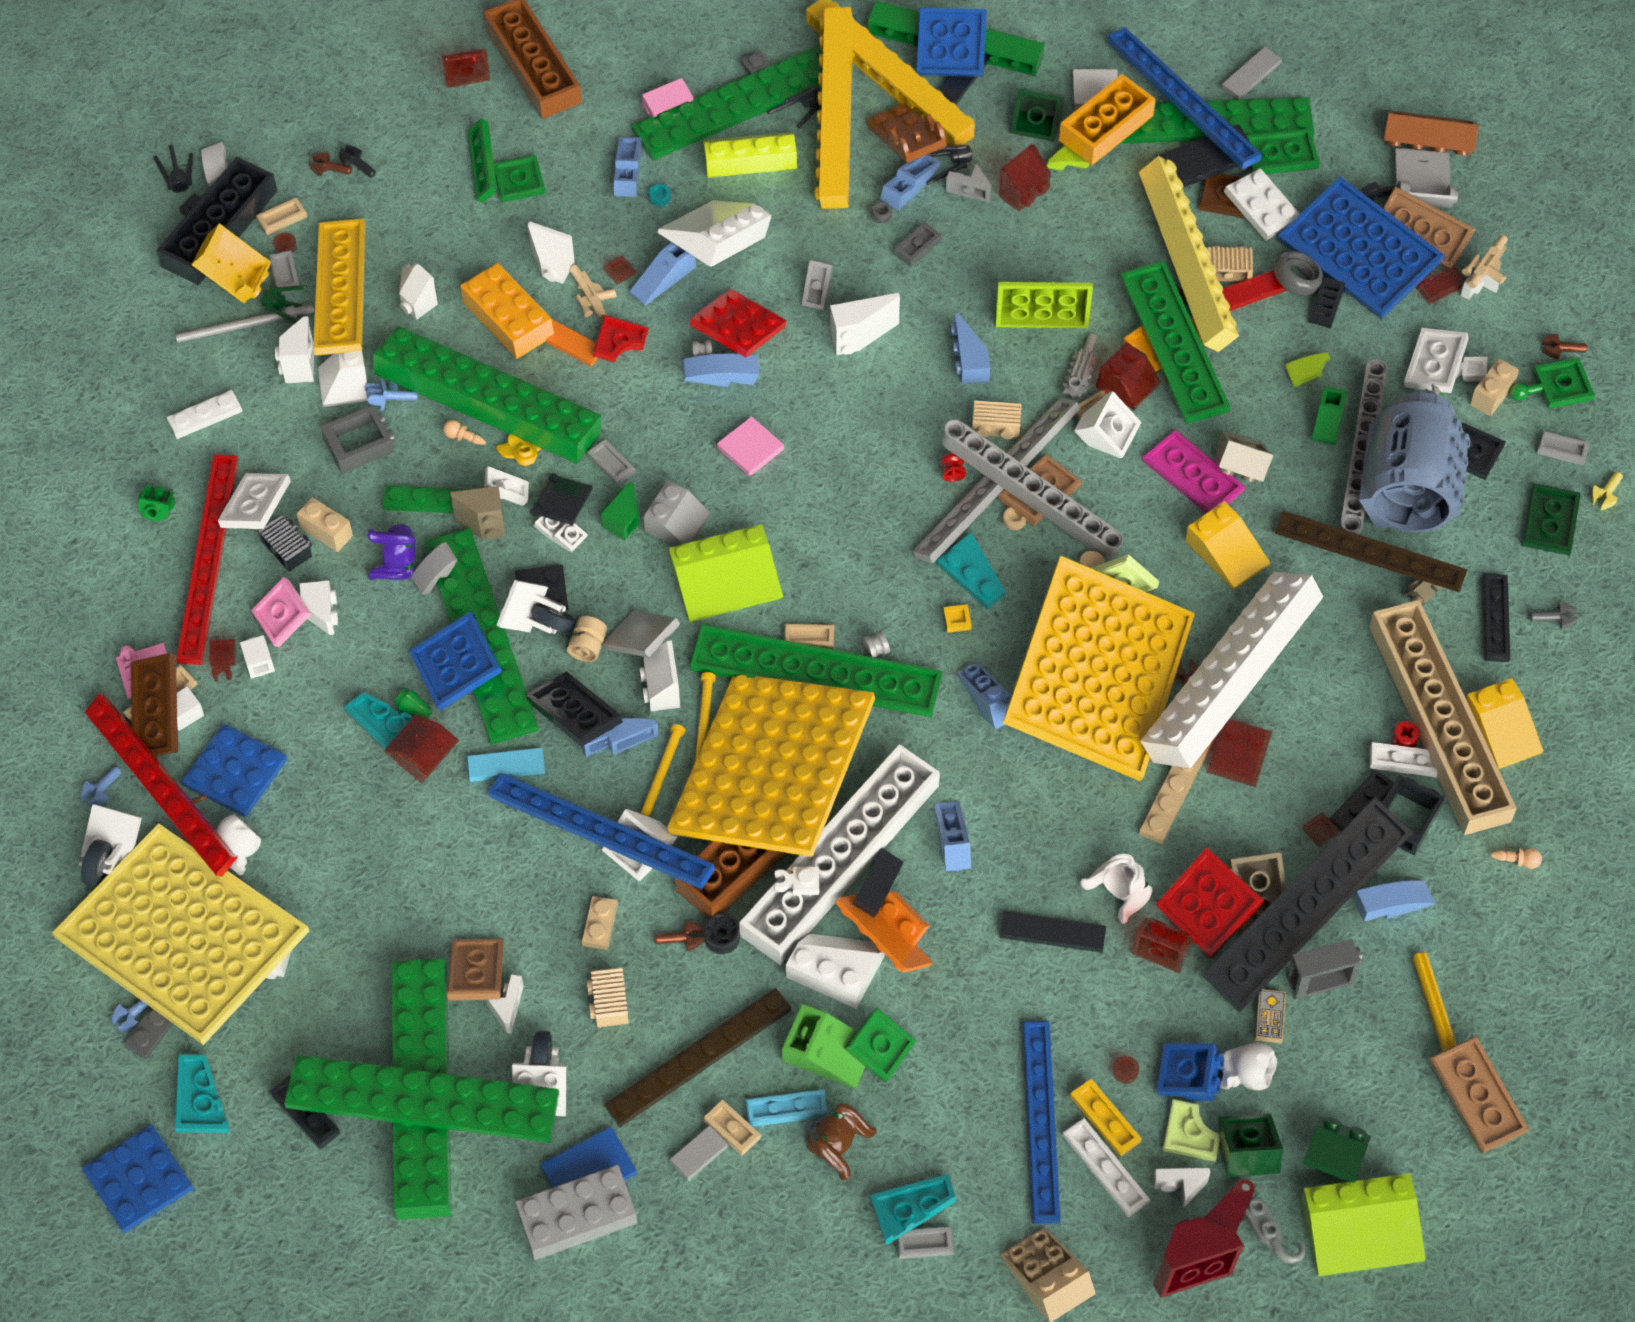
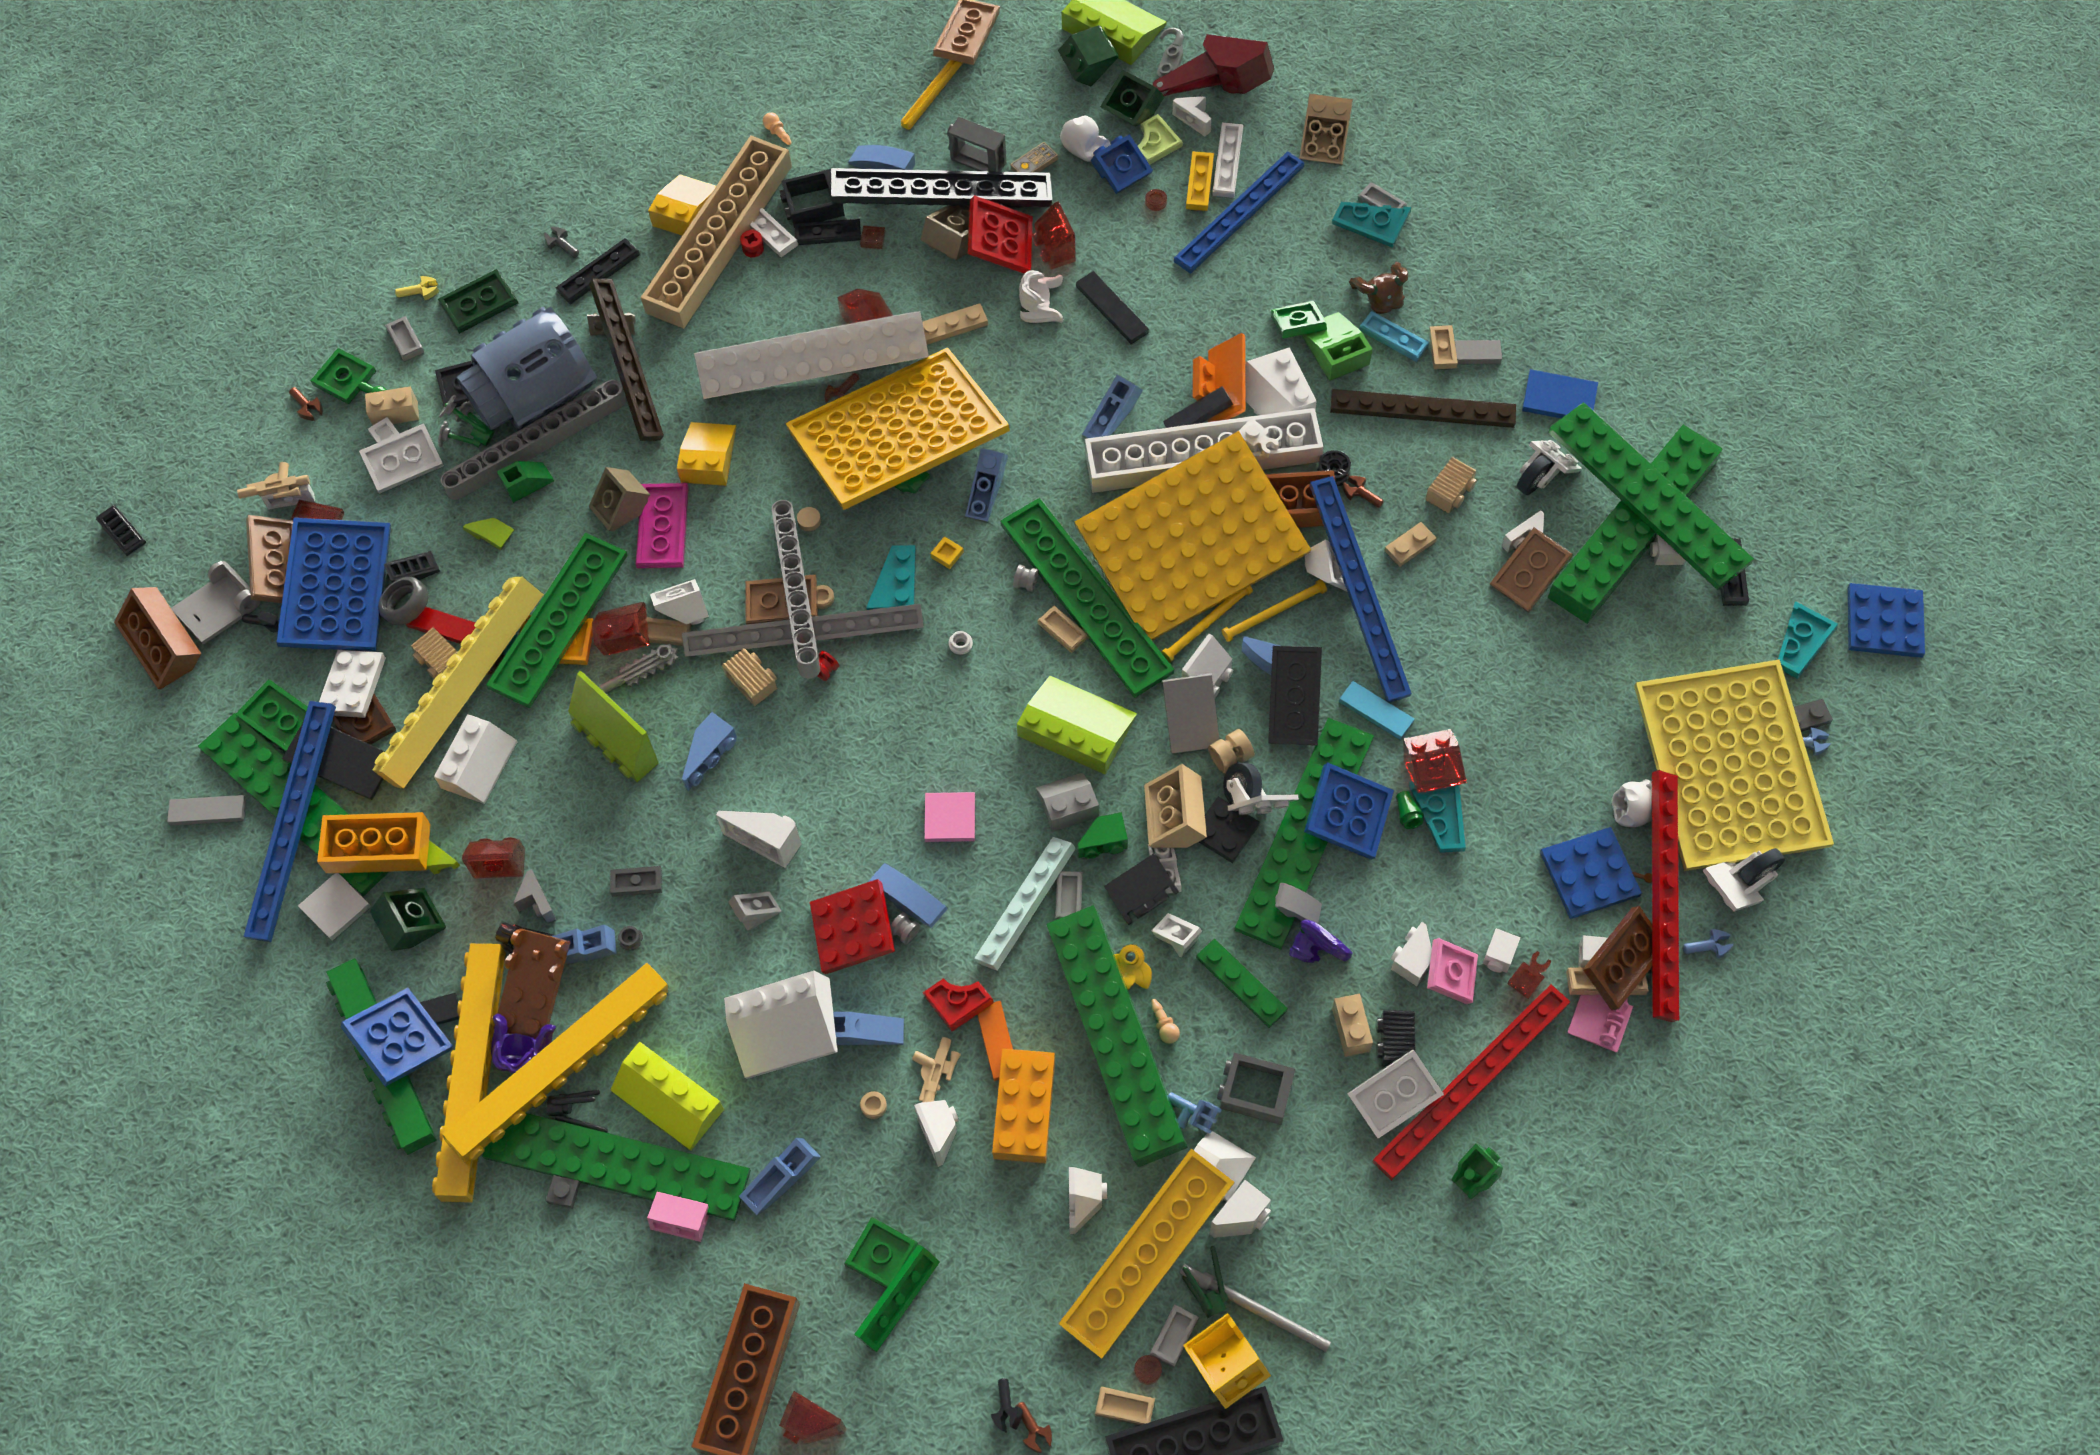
camera: 135 degrees left, 5 degrees up
(204, 414) = (1365, 1237): white plate -> none
(480, 511) = (1218, 918): dark tan slope -> none
(576, 1212) = (1596, 367): light grey brick -> none
(586, 563) = (1175, 809): none -> tan slope
(611, 247) = (873, 1105): none -> tan tile
(619, 270) = (889, 1075): clear red tile -> none
(636, 431) = (1025, 903): none -> light aqua plate
(659, 195) = (782, 1124): teal tile -> none
(873, 96) = (515, 1050): none -> dark purple hair
(874, 558) = (960, 636): none -> white plate
(1117, 226) = (475, 759): none -> white slope
(1129, 572) = (802, 476): yellowish green tile -> none
(1569, 174) = (112, 518): none -> black slope

